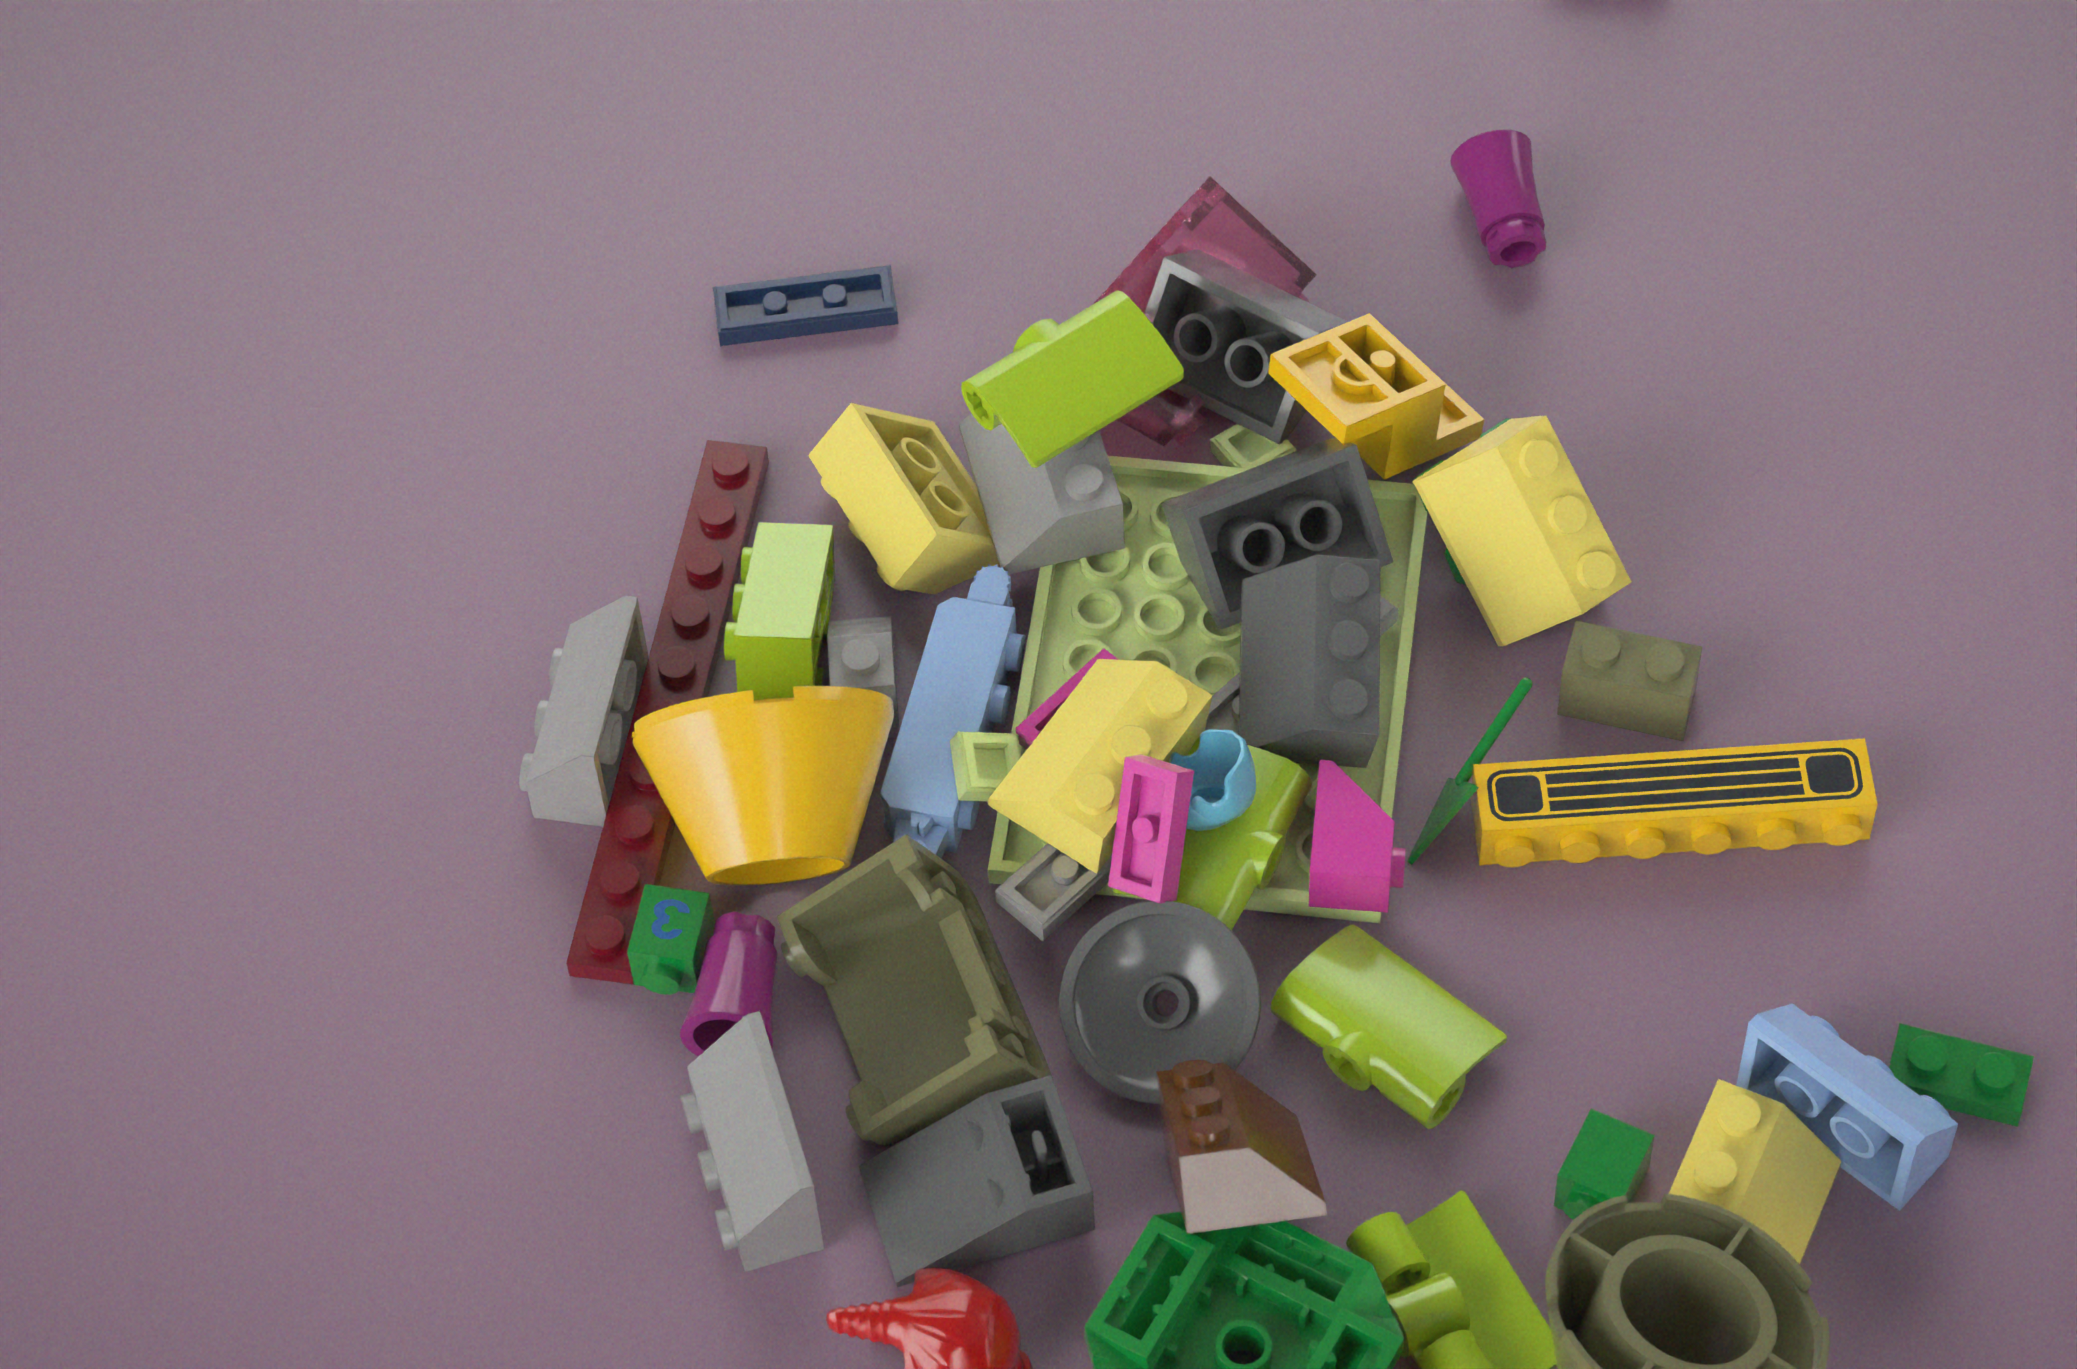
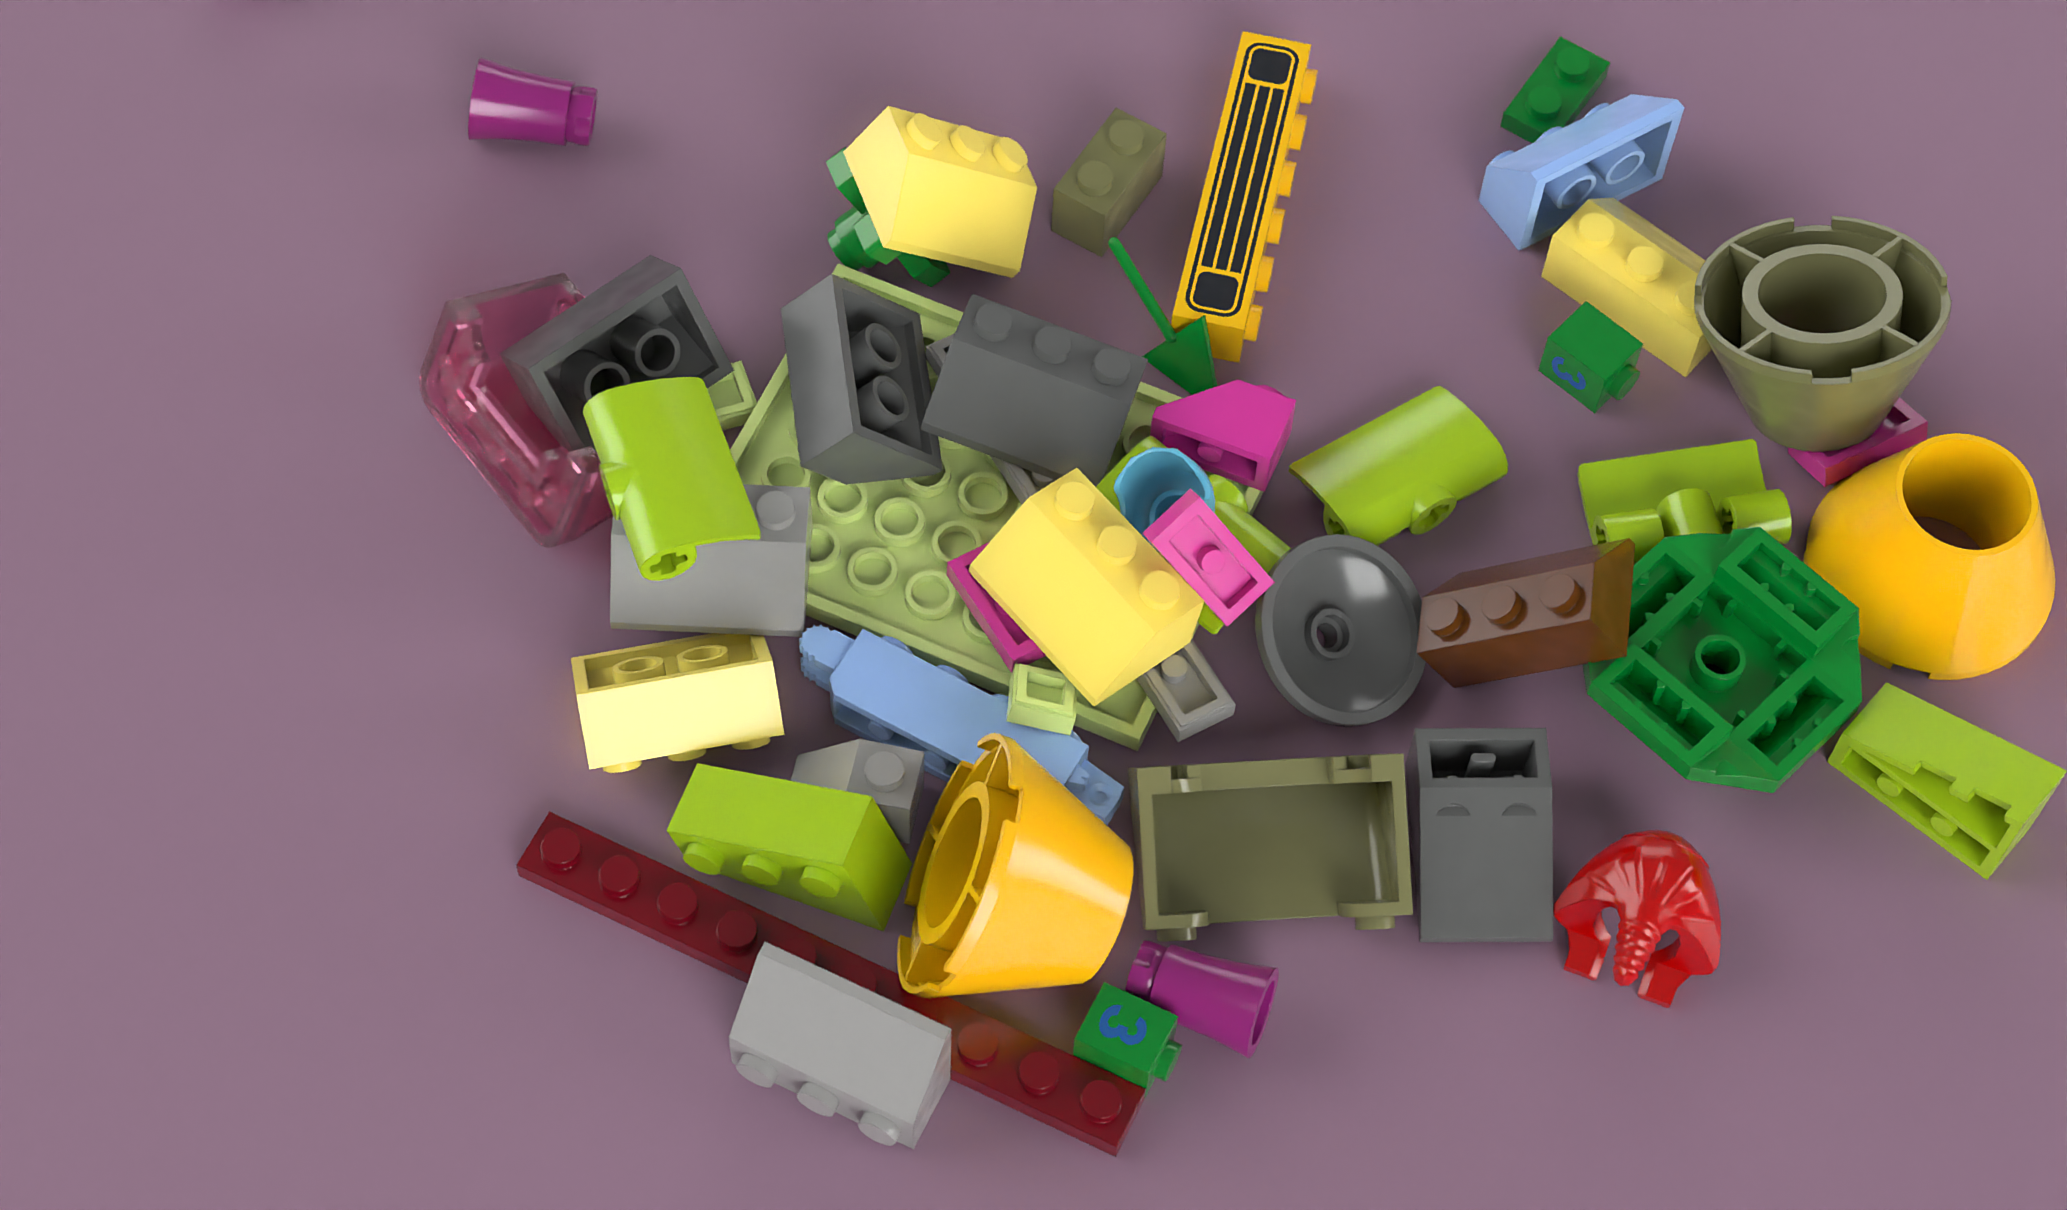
camera: 80 degrees left, 5 degrees up
(752, 1149) = (1397, 1011): light grey slope -> none
(805, 305) = (370, 736): dark blue tile -> none
(1375, 396) = (746, 258): yellow bracket -> none

